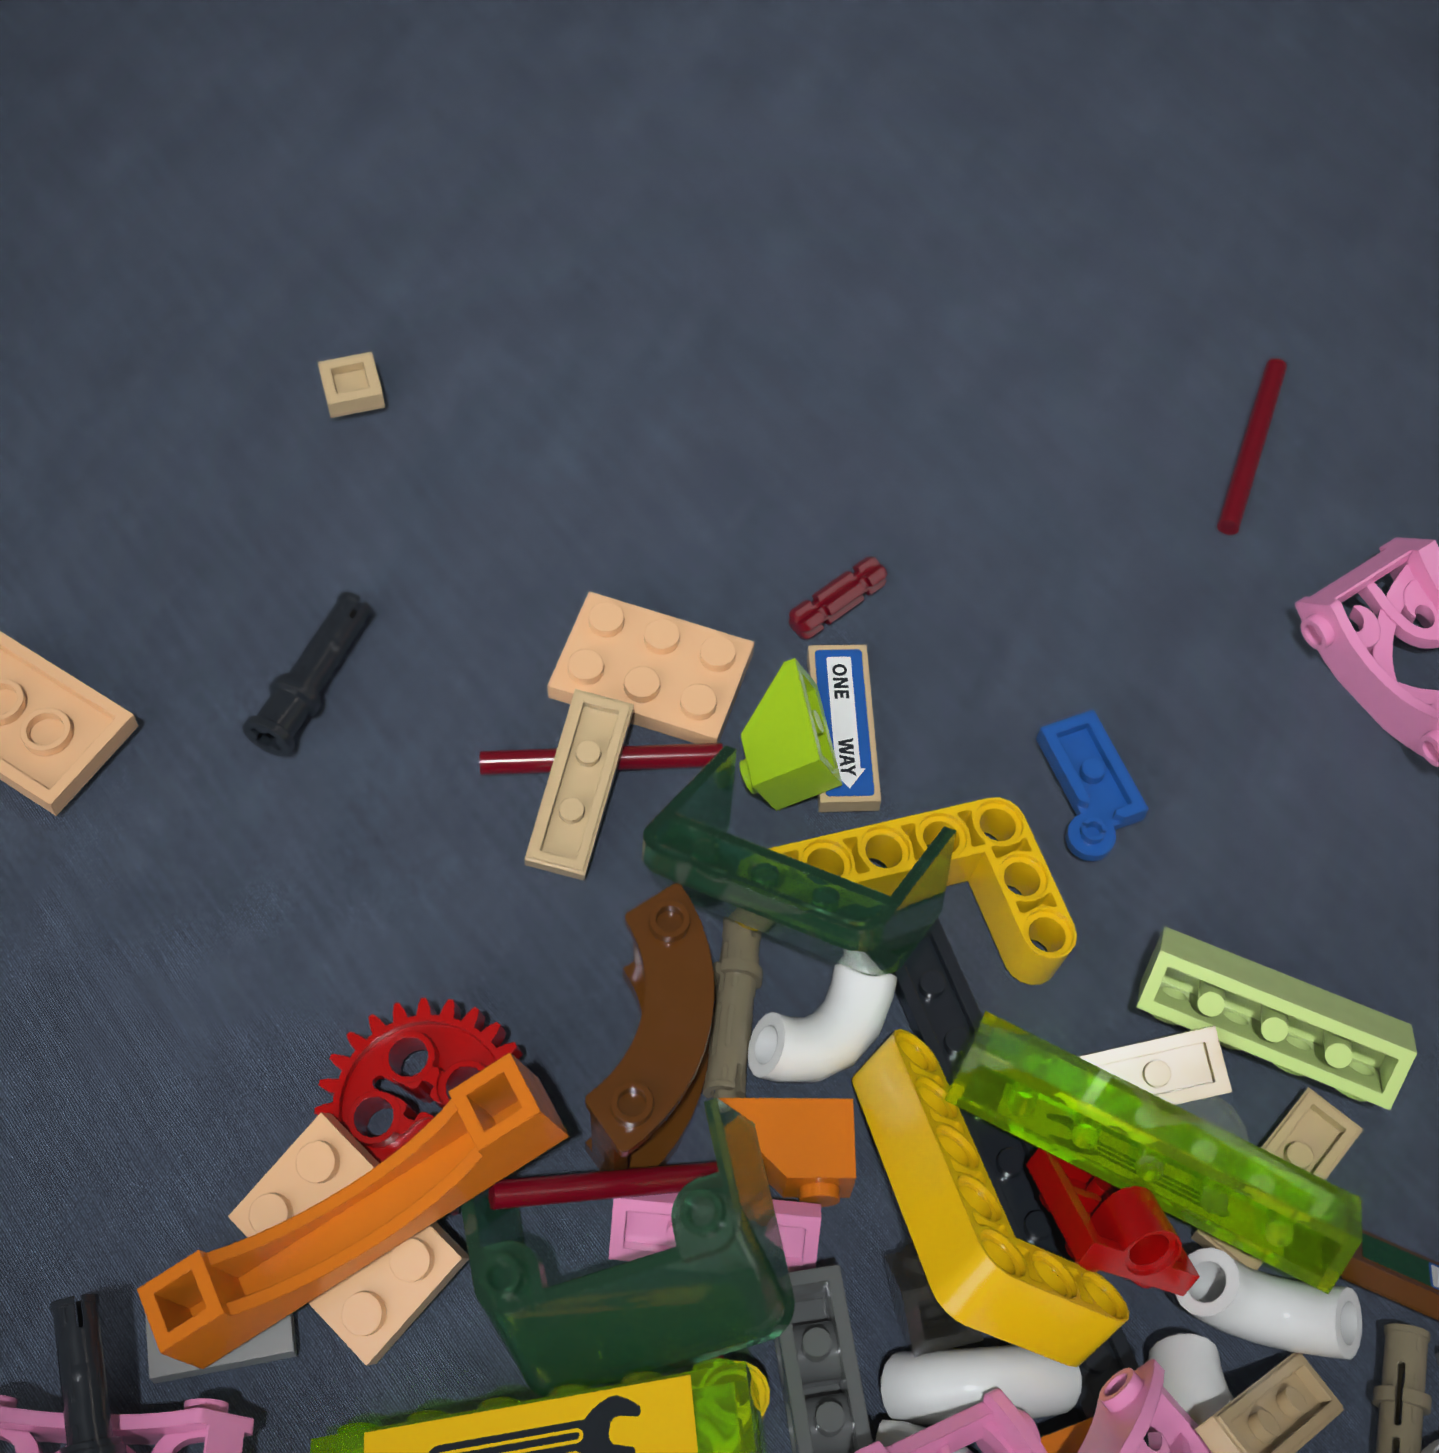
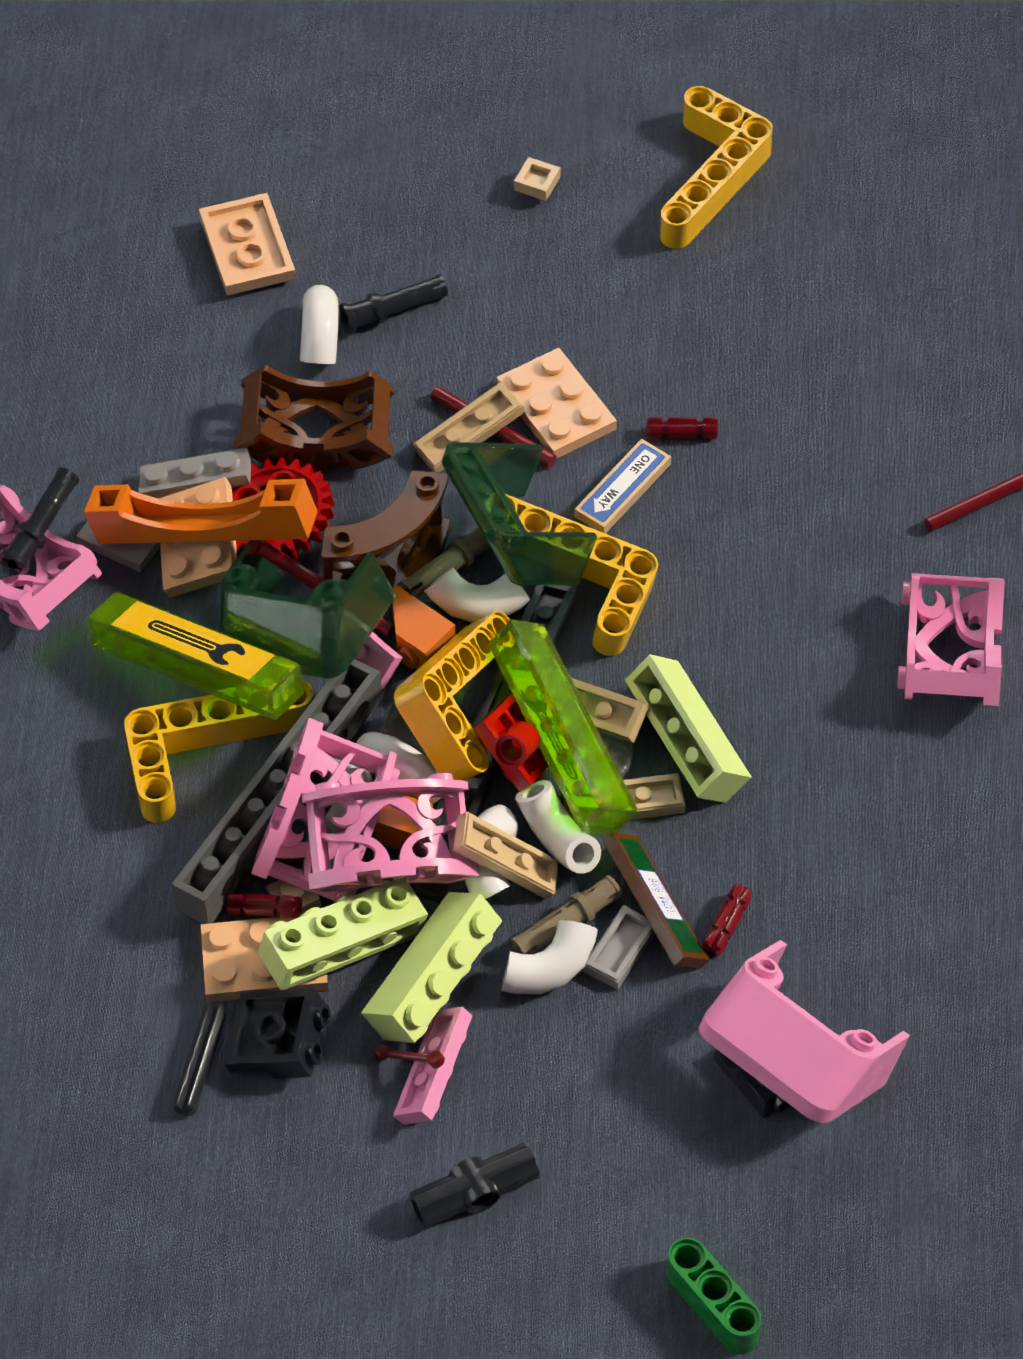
camera: 45 degrees right, 5 degrees down
(244, 773) = (319, 325): none -> white cylinder
(254, 1137) = (181, 474): none -> light grey plate
(331, 1006) = (343, 400): none -> reddish brown fence
(555, 182) = (743, 148): none -> yellow beam
(789, 742) = (584, 469): lime slope -> none
(1093, 783) = (717, 587): blue hinge -> none

